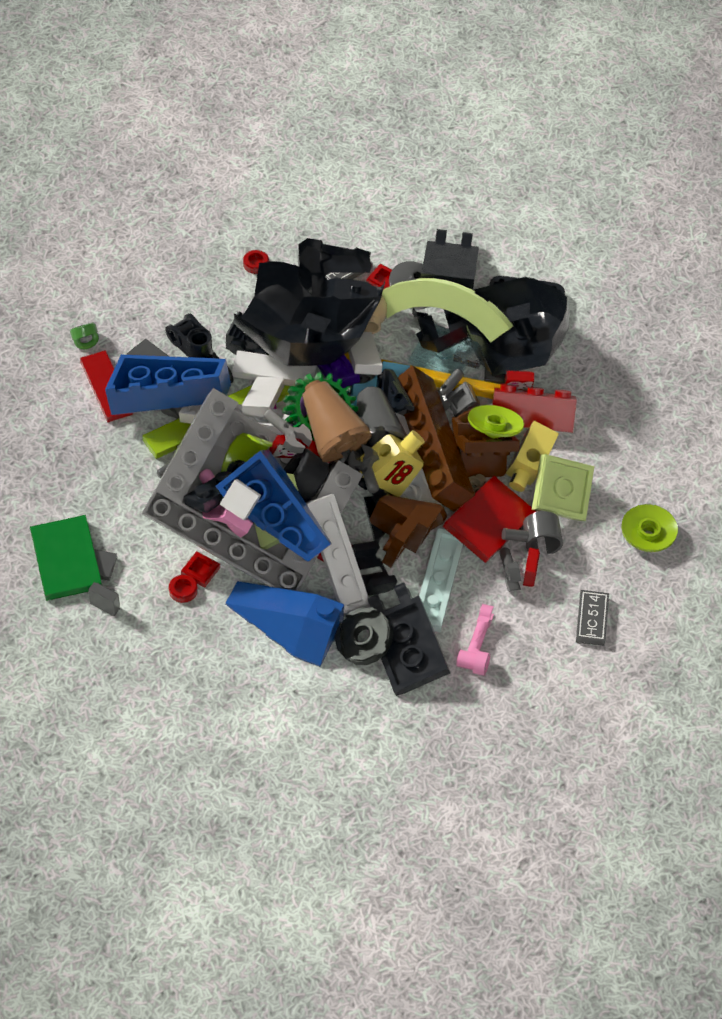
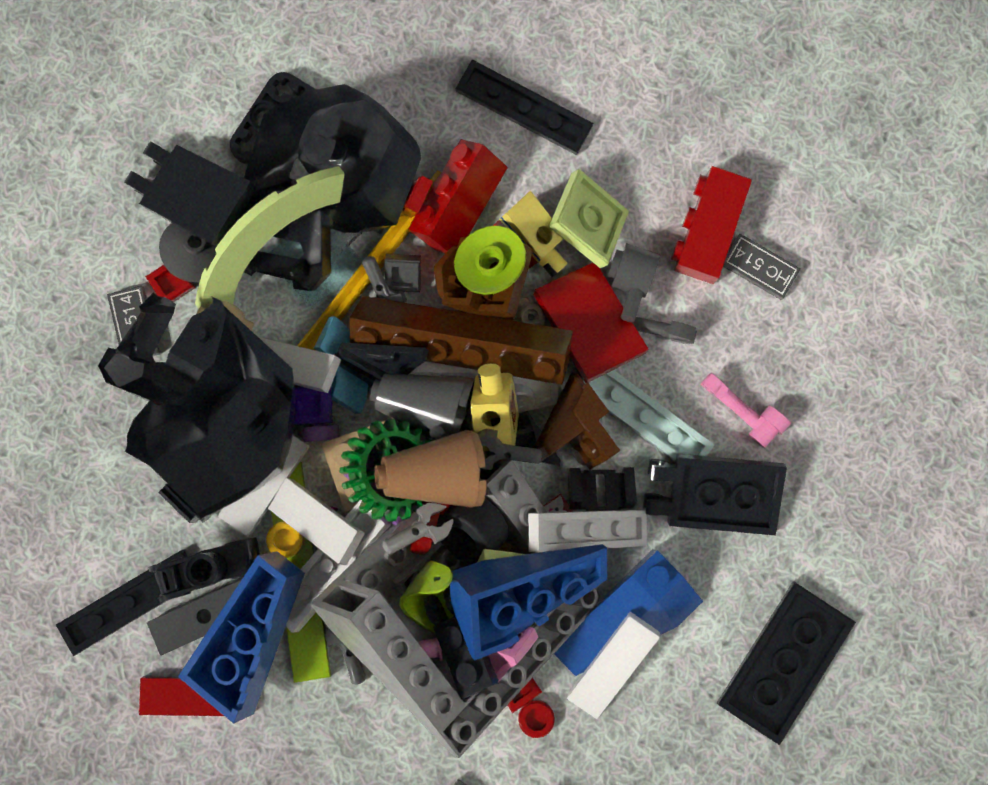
camera: 65 degrees left, 30 degrees up
(83, 331) = (100, 695): bright green tile -> none
(141, 323) = (112, 611): none -> black tile
(239, 391) = (284, 539): none -> yellow tile
(240, 499) = (510, 638): white tile -> none
(245, 614) = (613, 665): none -> white tile
(252, 259) = (73, 429): red tile -> none
(300, 734) = (786, 663): none -> black tile
(375, 646) = (689, 520): pearl dark grey tile -> none
(531, 567) = (675, 305): red tile -> none
(604, 570) = (711, 224): none -> red brick
(624, 435) = (524, 107): none -> black tile
(653, 519) = (681, 130): lime dish -> none

